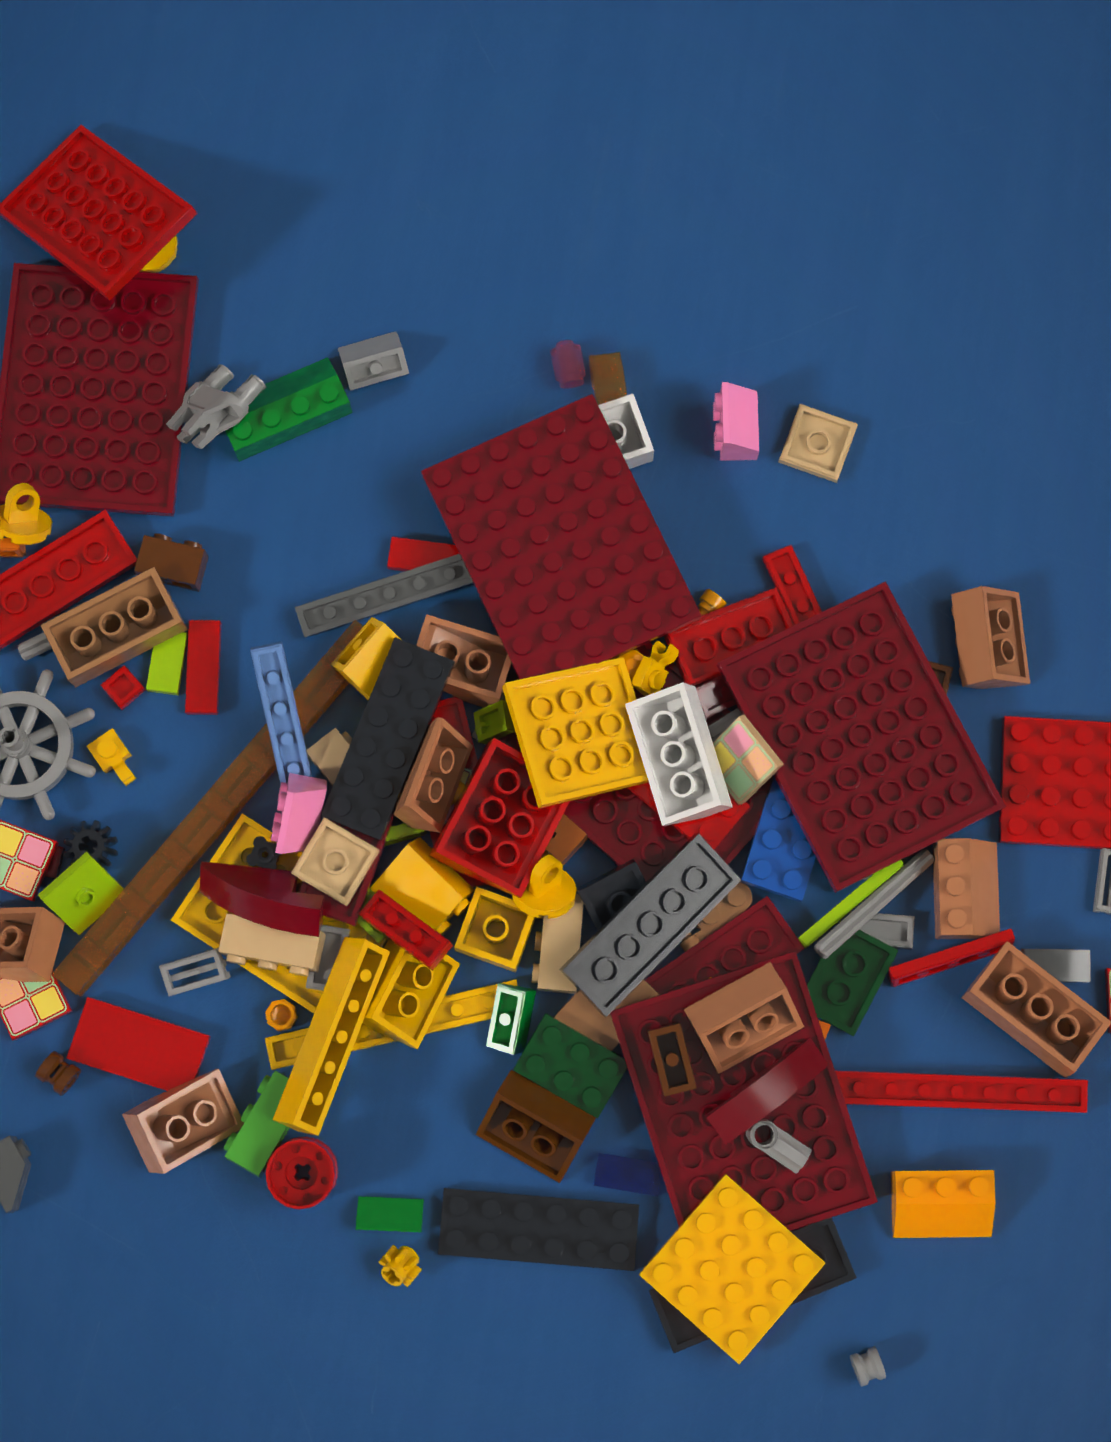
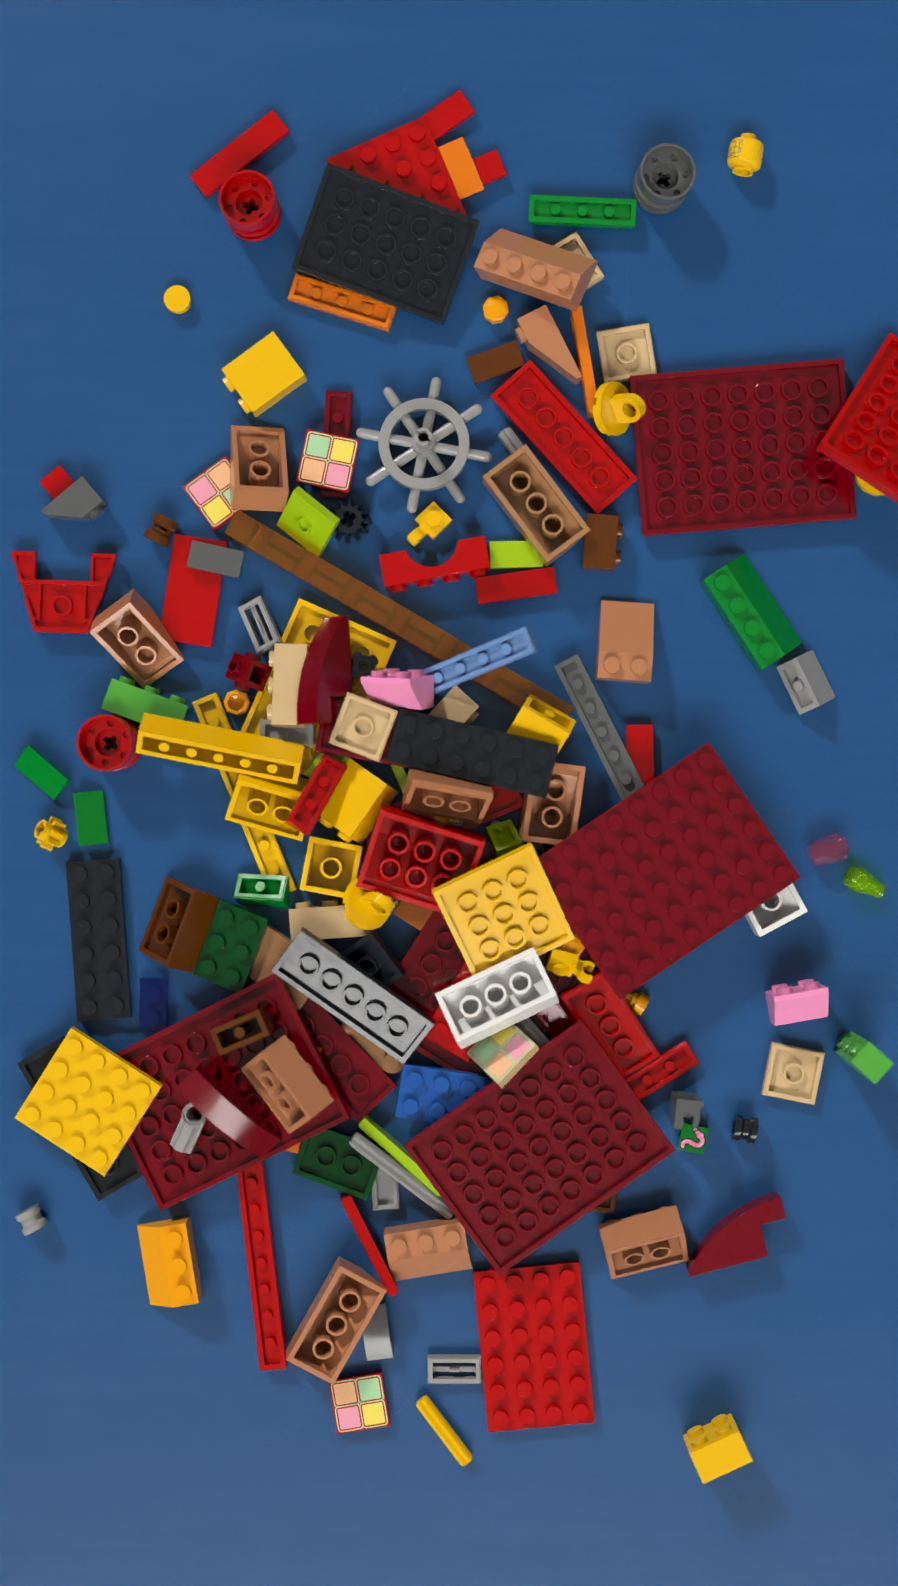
camera: 75 degrees right, 10 degrees up
(106, 1011) = (215, 559): none -> dark grey tile
(123, 687) = (488, 521): red tile -> none
(124, 1210) = (63, 604): none -> red wing
(160, 795) = (468, 559): none -> red arch
(212, 410) = (736, 551): light grey connector -> none
(247, 993) = (248, 671): none -> dark red brick
(292, 552) = (625, 642): none -> nougat slope
(324, 1267) = (42, 772): none -> green slope
(607, 377) = (820, 886): clear orange slope -> none
(611, 332) = (863, 882): none -> clear neon green cone
(807, 357) = (863, 1056): none -> bright green brick
(836, 570) = (684, 1106): none -> dark grey hinge
(874, 505) = (744, 1129): none -> black wheel
(877, 565) = (692, 1138): none -> green tile
(997, 532) = (736, 1236): none -> dark red slope

